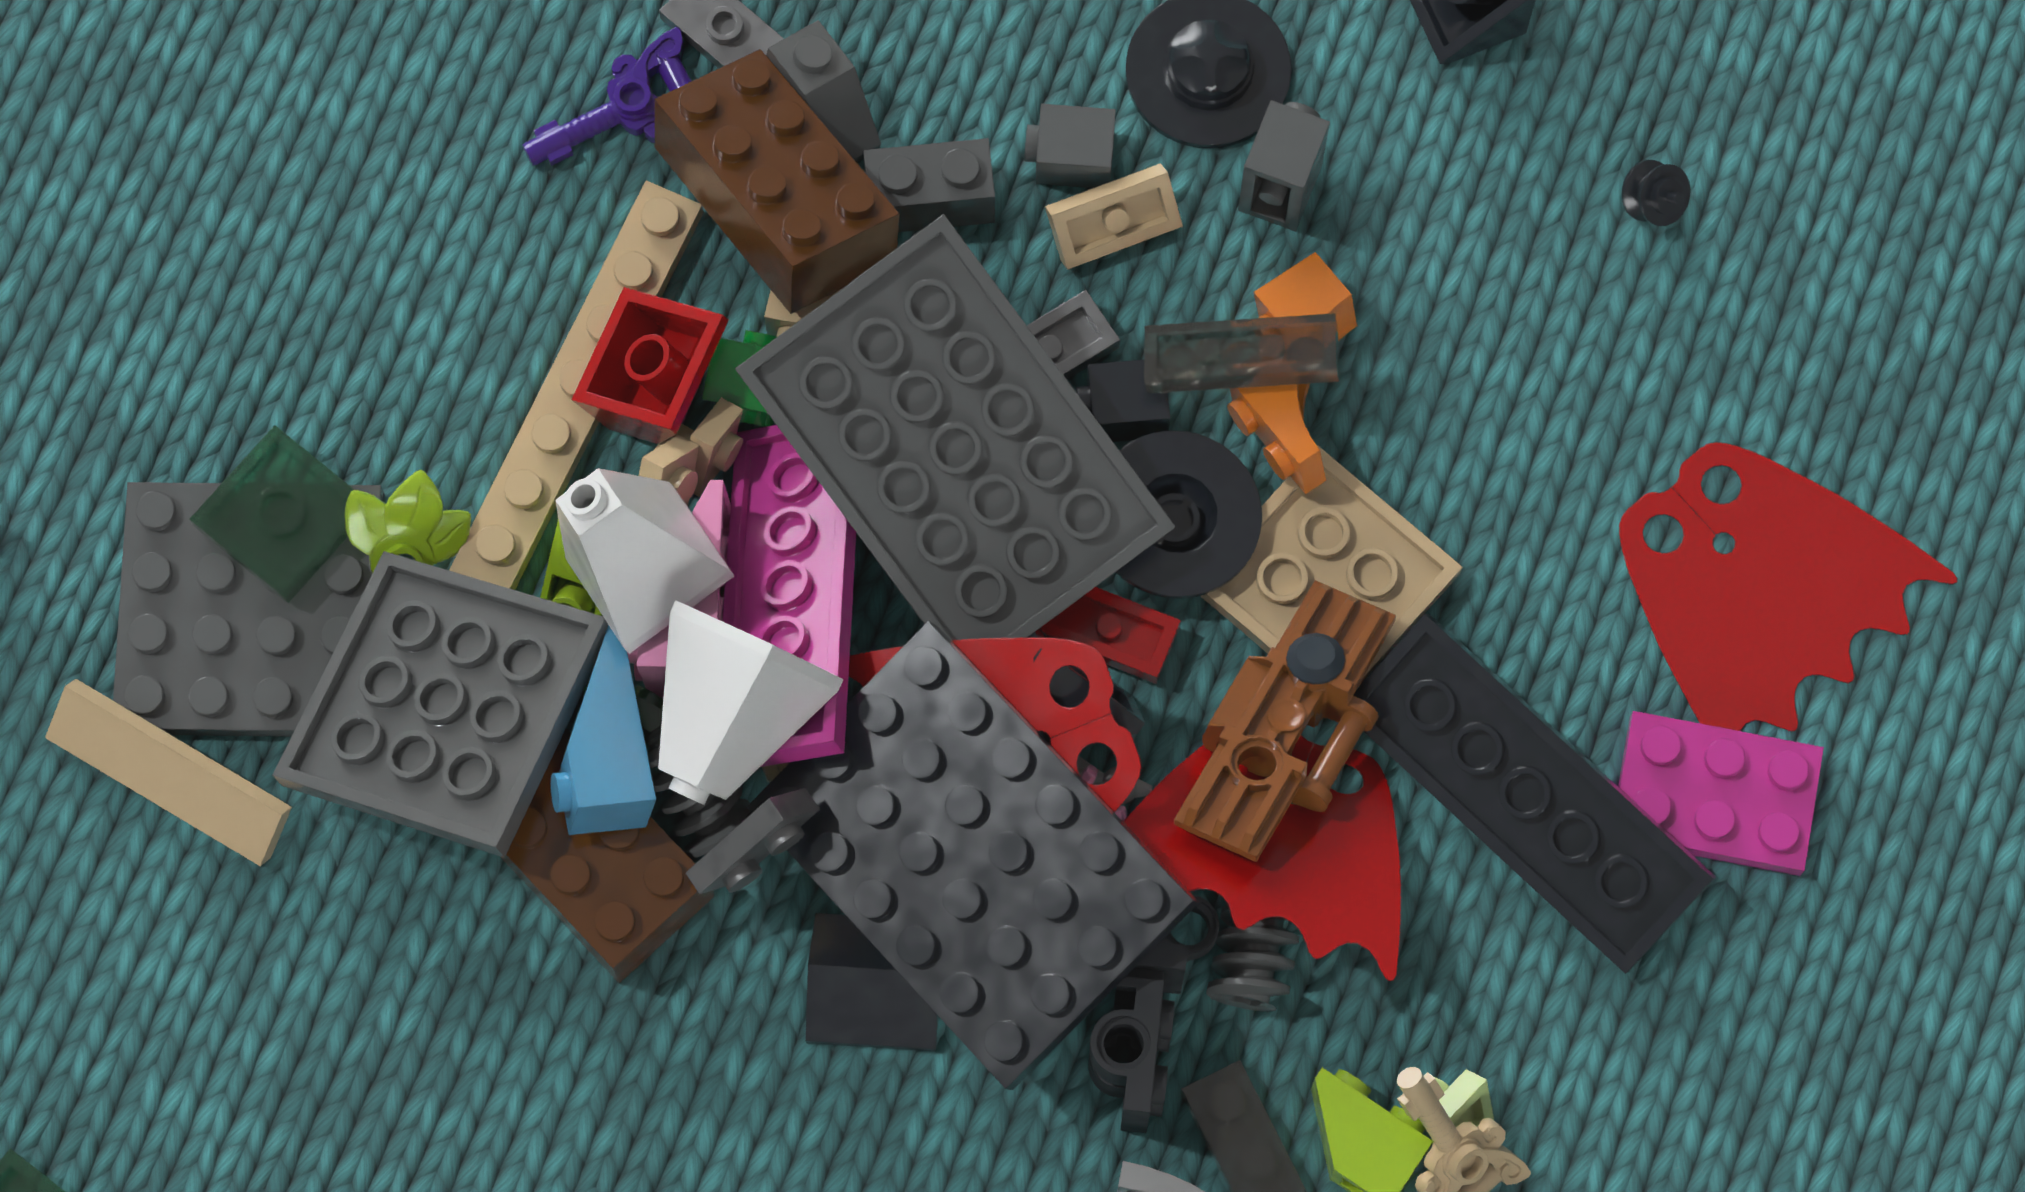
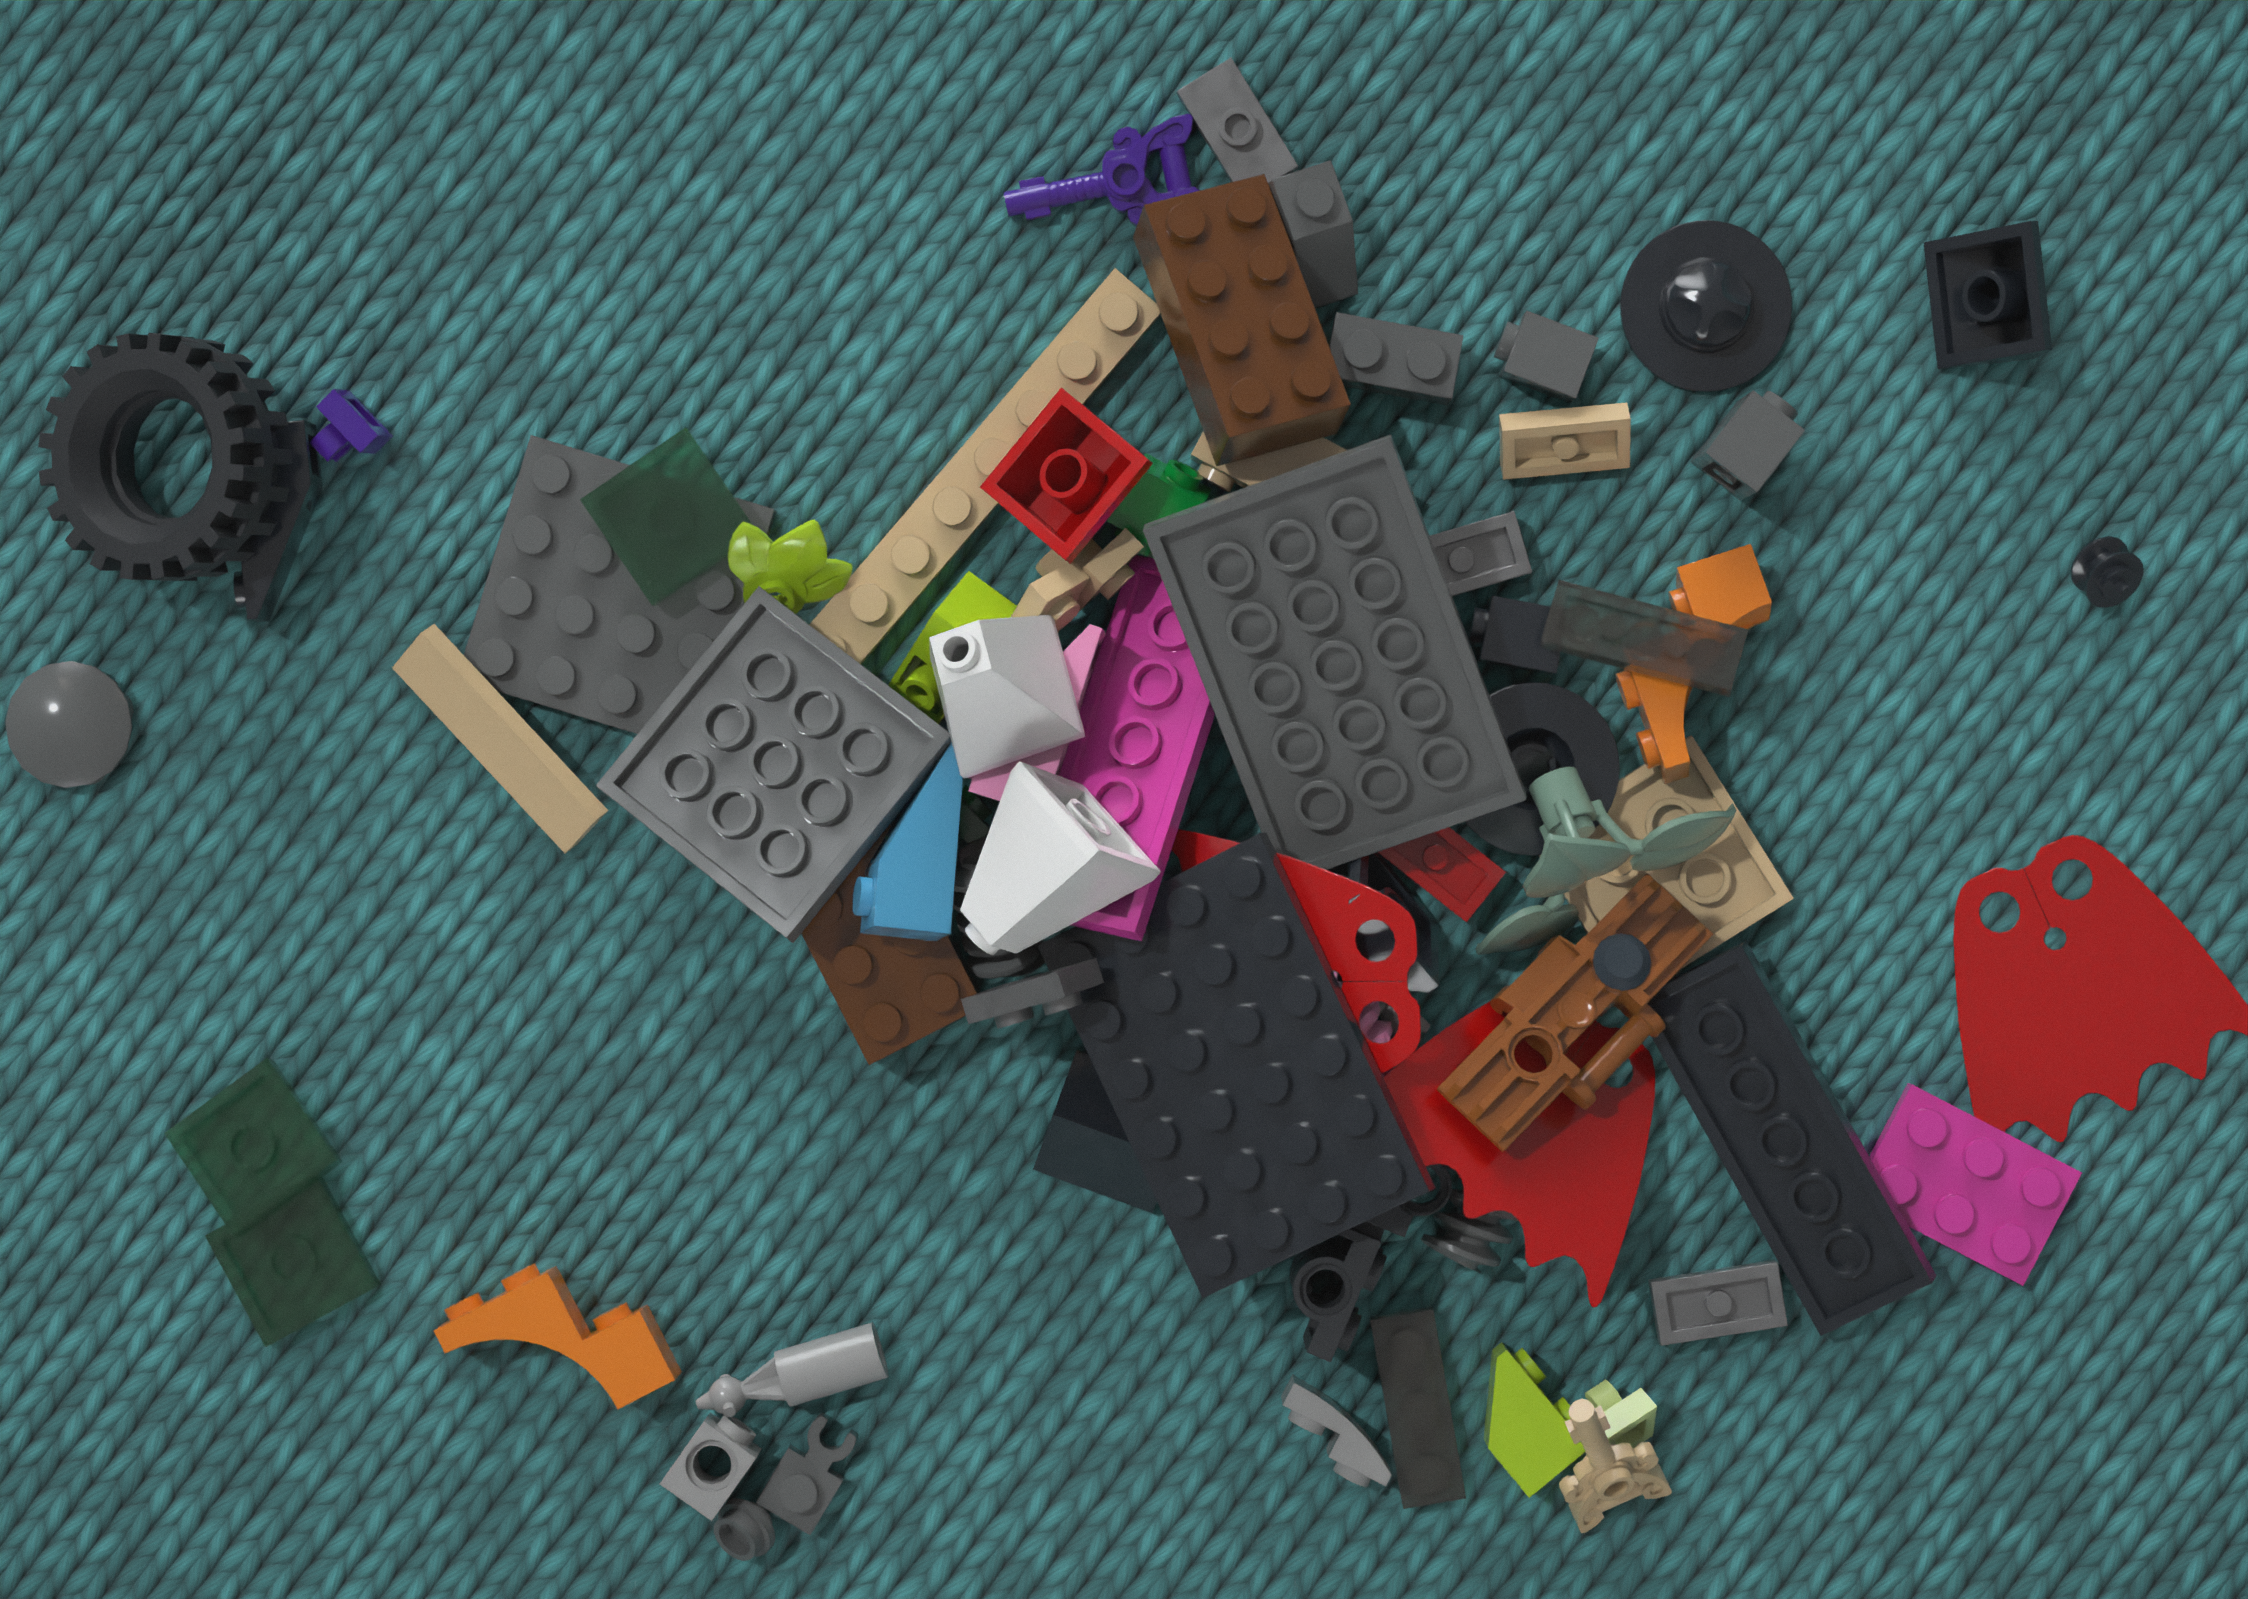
camera: 20 degrees right, 15 degrees up
(1232, 544) = (1573, 858): none -> sand green plant
(1515, 972) = (1718, 1302): none -> flat silver plate

